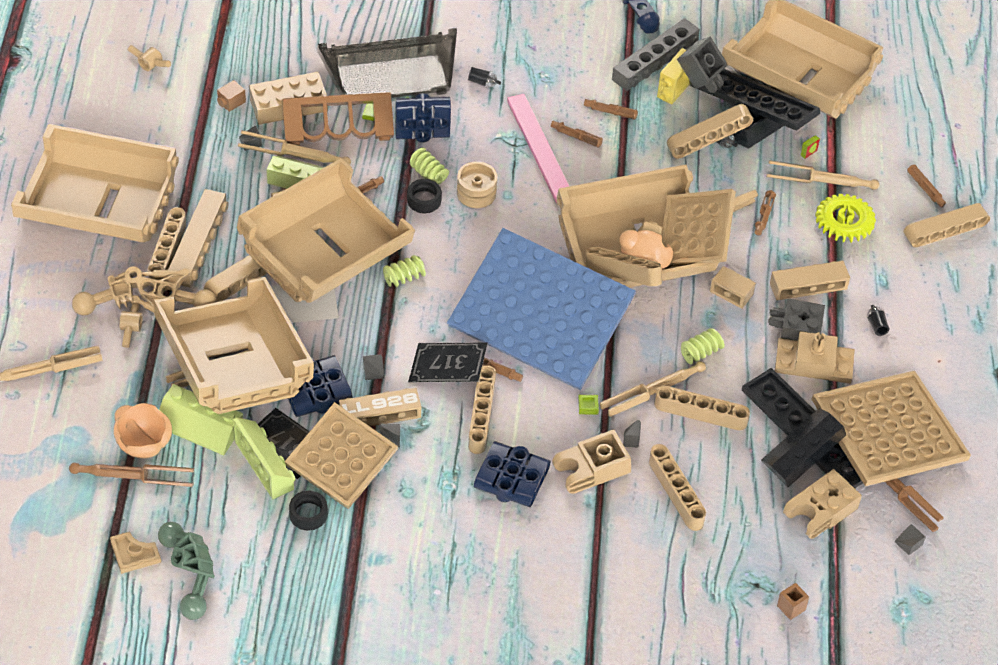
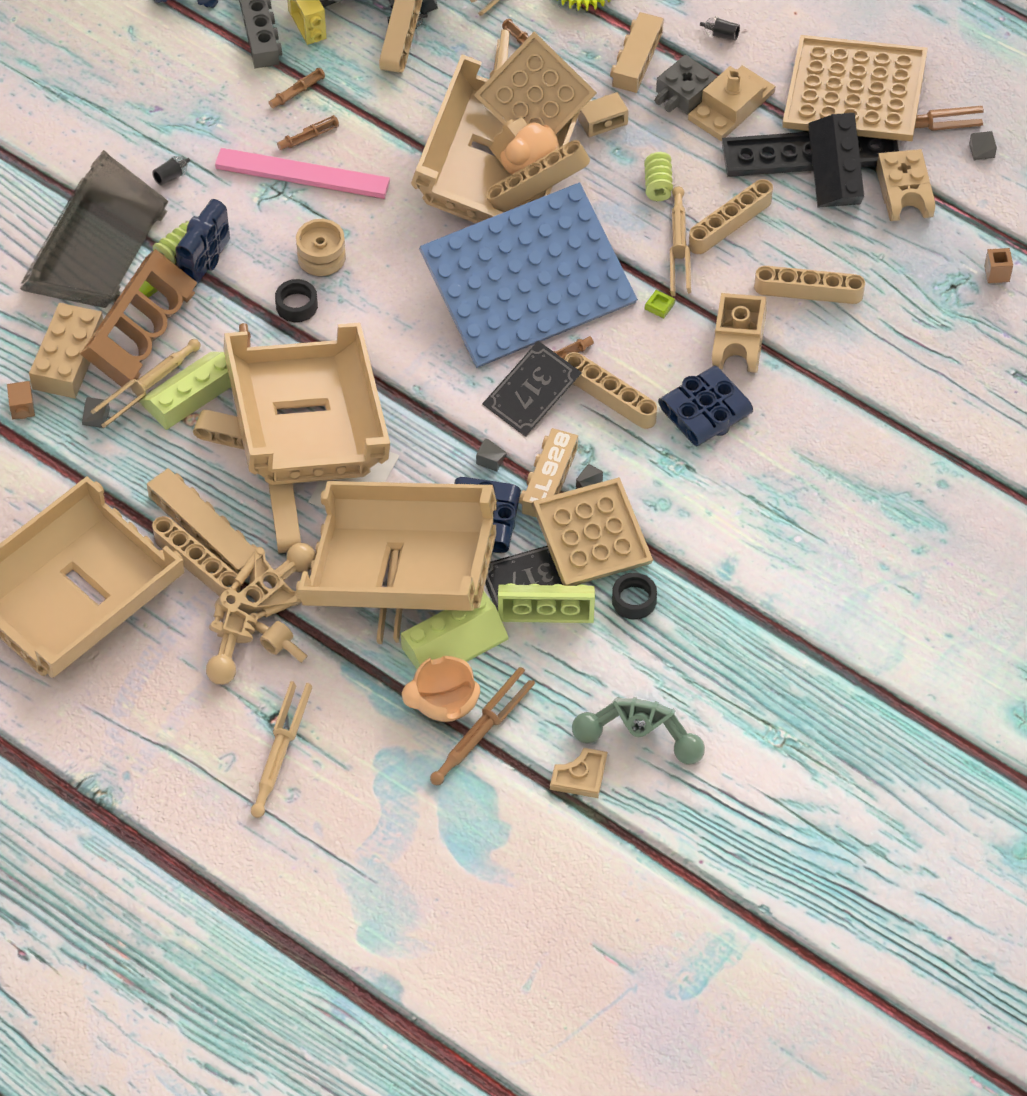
camera: 55 degrees left, 5 degrees up
(403, 270) = (387, 366): yellowish green piece -> none
(427, 166) = (262, 276): yellowish green piece -> none
(632, 435) = (723, 284): dark grey slope -> none

